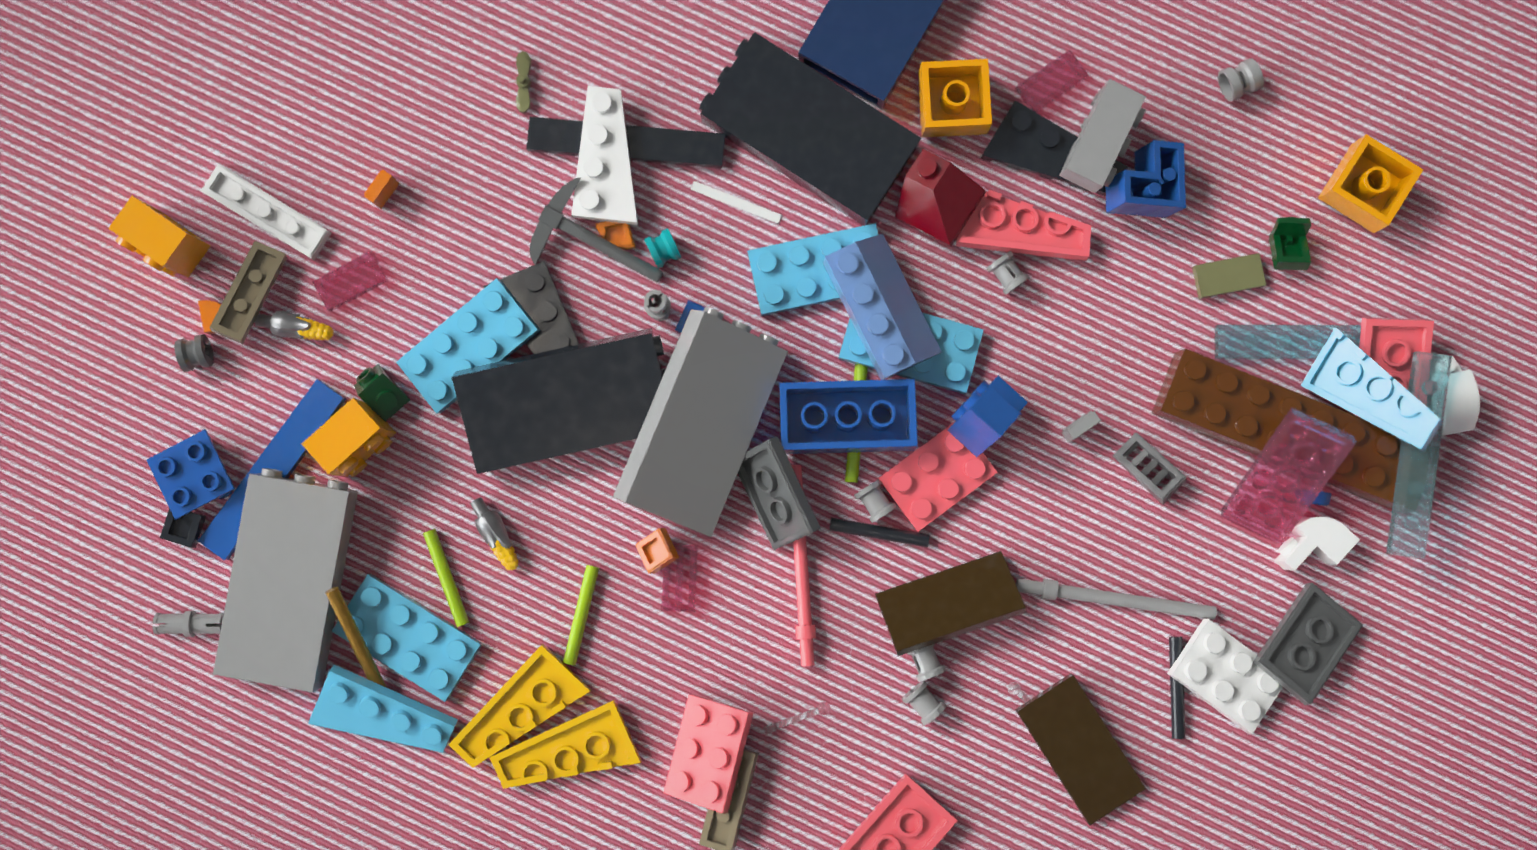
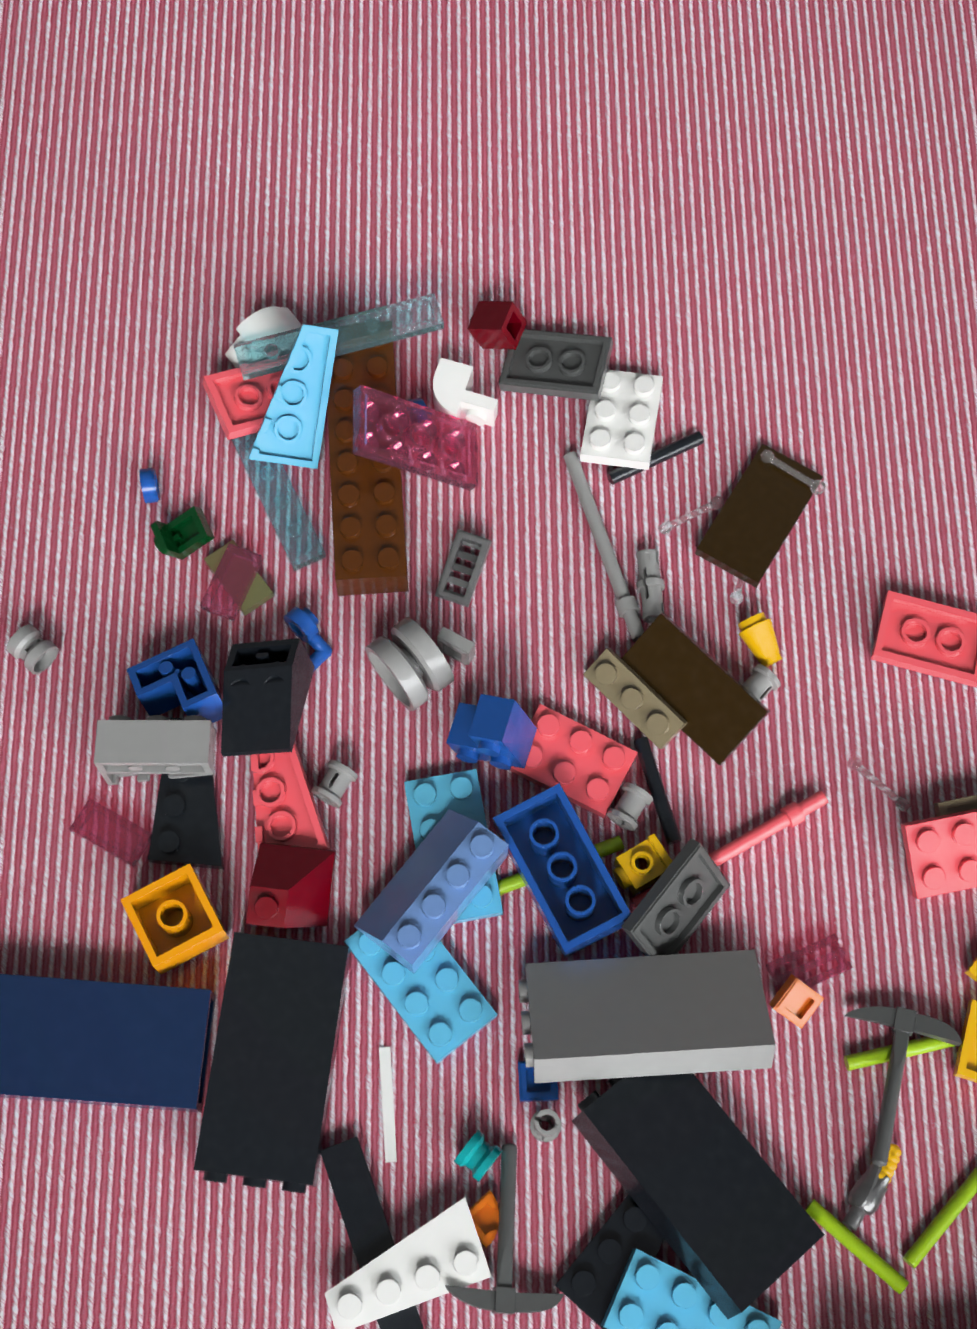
camera: 120 degrees left, 15 degrees down
(459, 498) = (856, 1246): none -> lime bar
(599, 625) = (903, 1024): none -> dark grey piece
(822, 498) = (636, 879): none -> yellow brick
(924, 702) = (797, 670): light grey bush -> none
(965, 553) = (635, 698): none -> dark tan plate
(966, 687) = (760, 638): none -> yellow cone
(1059, 619) = (650, 584): none -> light grey pin
(1080, 376) = (409, 663): none -> light grey wheel
(1082, 813) = (816, 486): none -> clear hinge
(1106, 244) = (264, 696): none -> black slope
(1109, 718) = (715, 503): none -> clear hinge
(1158, 310) = (304, 626): none -> blue plate
(1225, 265) = (231, 582): none -> clear pink tile
(1350, 235) = (149, 485): none -> blue tile
(1370, 184) = (90, 486): light orange brick -> none
(1371, 608) = (497, 325): none -> dark red brick

